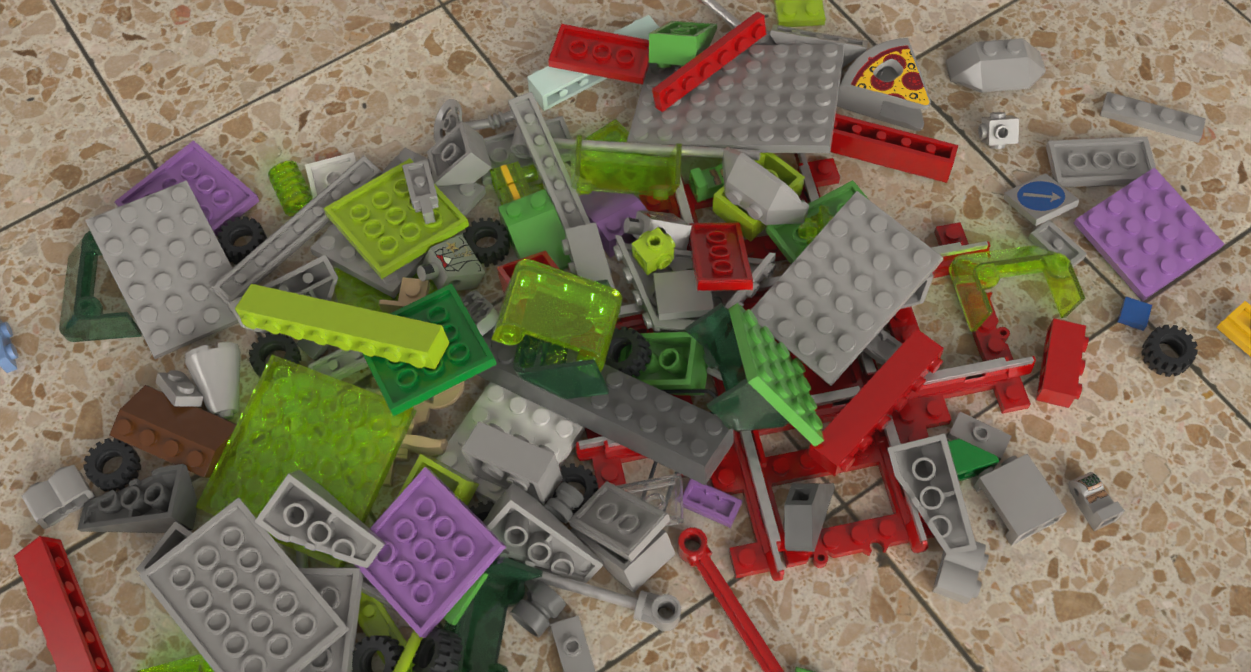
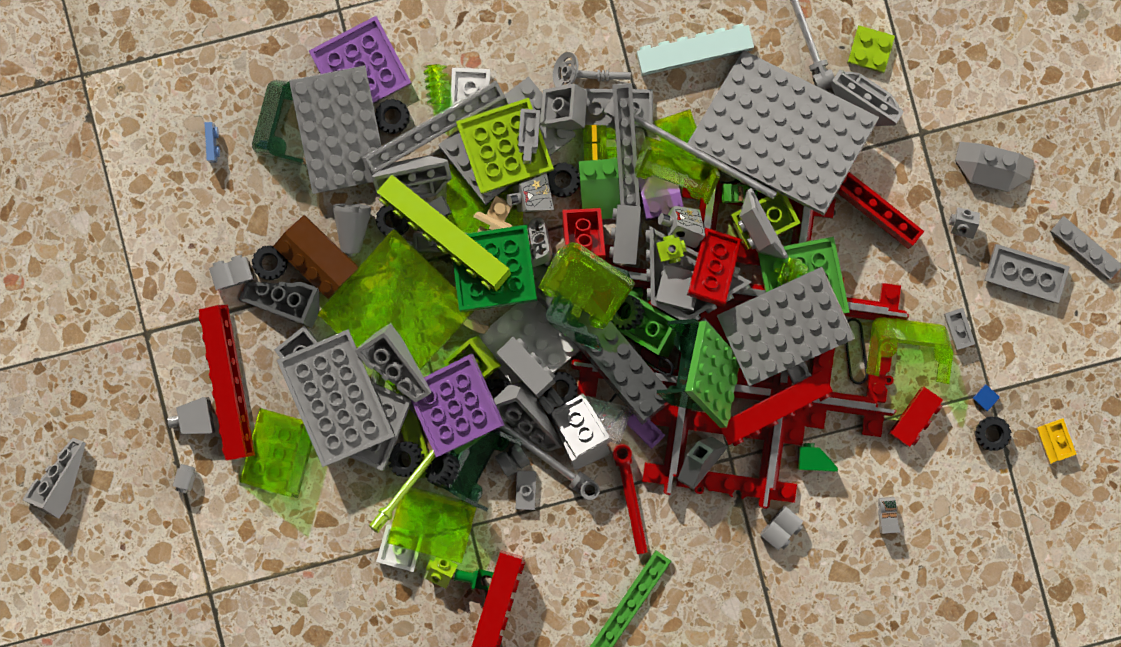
camera: 20 degrees right, 25 degrees up
(179, 389) = (324, 226): light grey plate -> none
(600, 54) = (698, 54): red plate -> none
(679, 42) = (762, 65): bright green slope -> none
(709, 61) = (780, 94): red plate -> none
(886, 85) = (901, 154): light grey piece -> none
(932, 484) = (786, 472): light grey wedge -> none
(956, 318) = (864, 354): none -> black piece
(979, 434) = (837, 446): light grey plate -> none
(1021, 497) = (841, 497): light grey panel -> none
(1041, 199) = (966, 289): tile -> none
(1148, 234) = (1027, 343): medium lavender plate -> none

